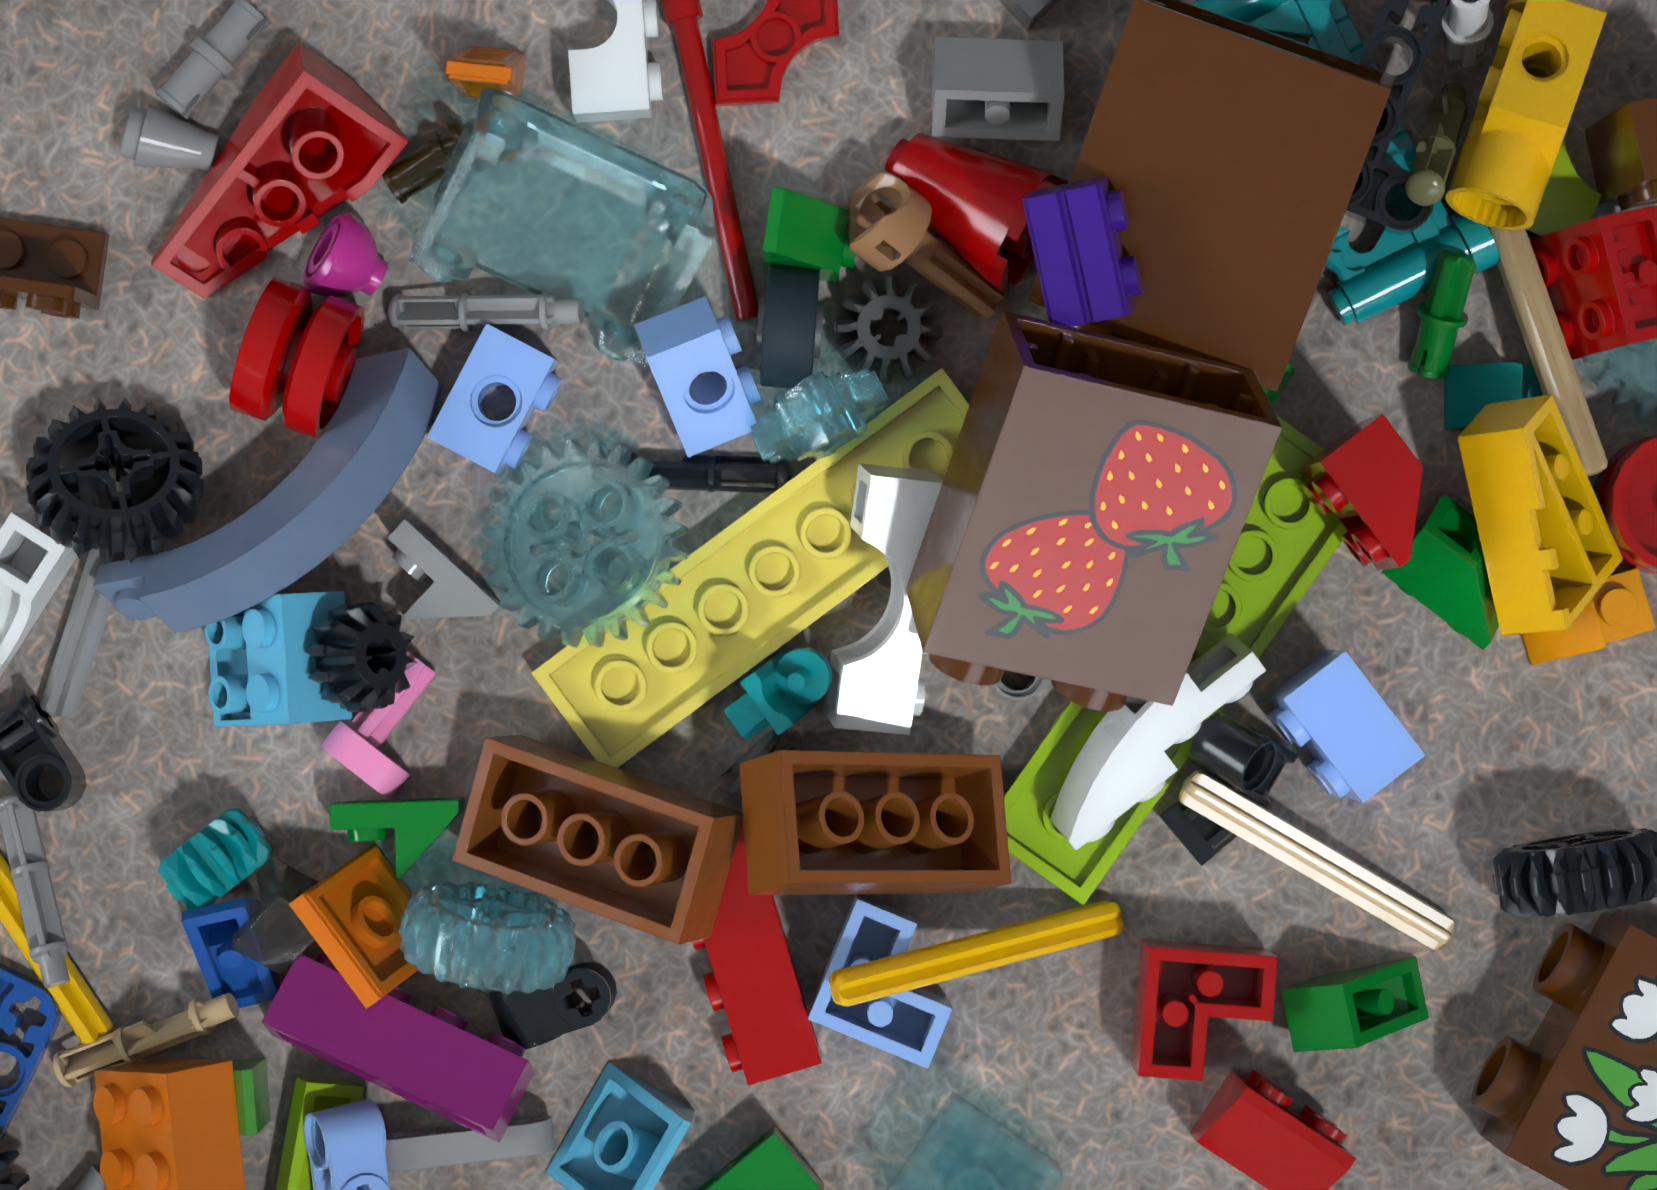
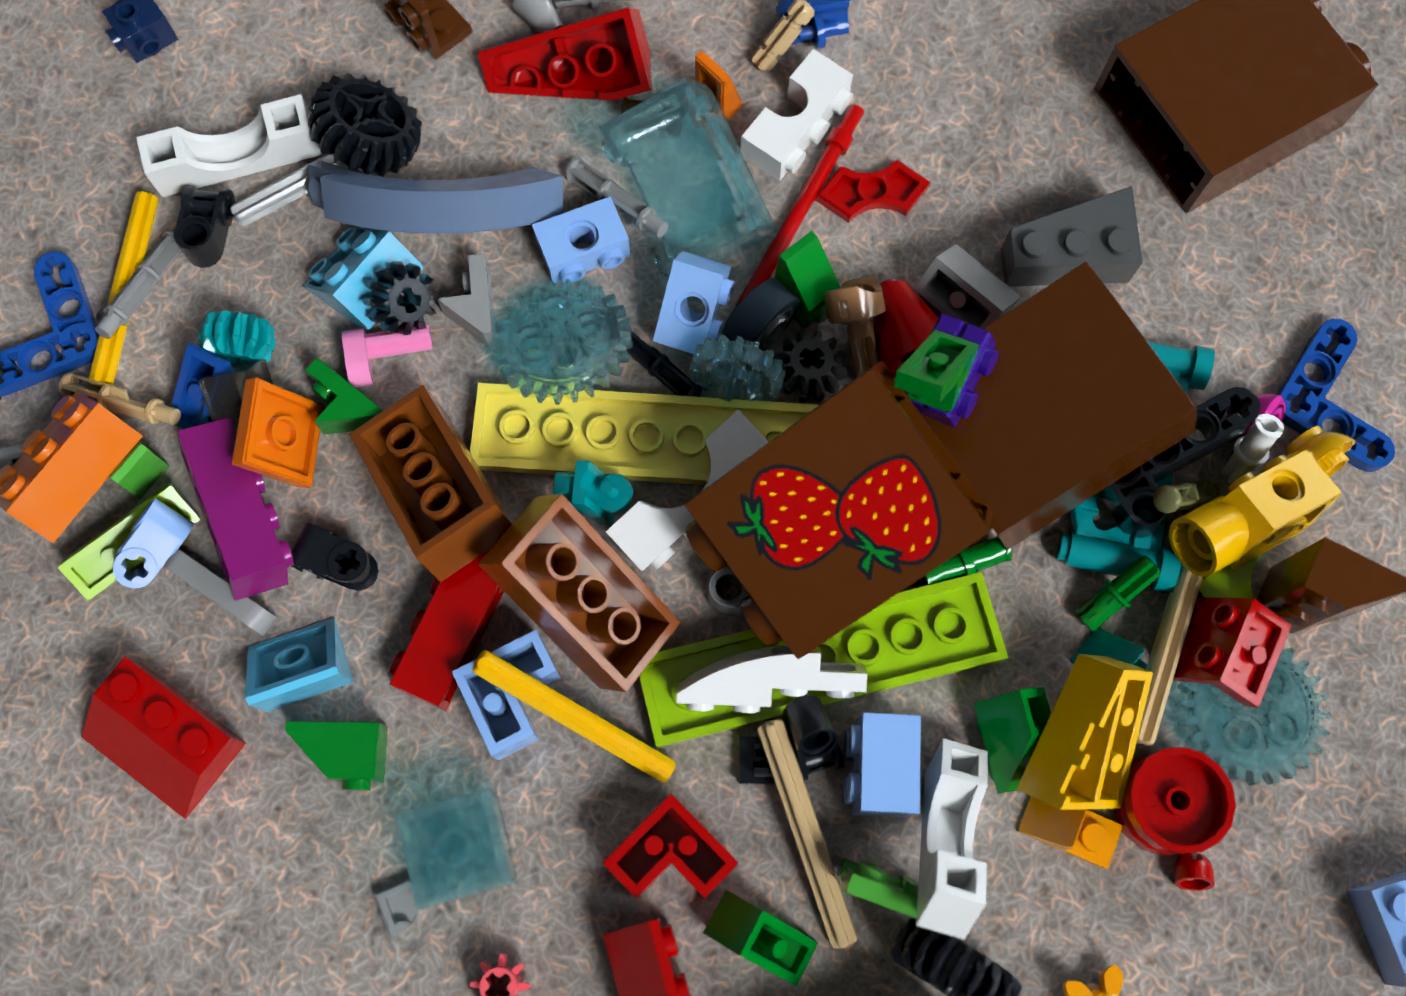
camera: 40 degrees right, 15 degrees down
(296, 357) = (503, 133): red wheel -> none
(344, 260) = (570, 122): dark pink brick -> none
(487, 937) = (328, 485): clear light blue gear -> none
(1078, 280) = (937, 370): none -> green slope
(1372, 489) = (1004, 639): red slope -> none
(1451, 850) = (879, 887): none -> bright green plate
(1504, 793) = (949, 877): none -> white arch

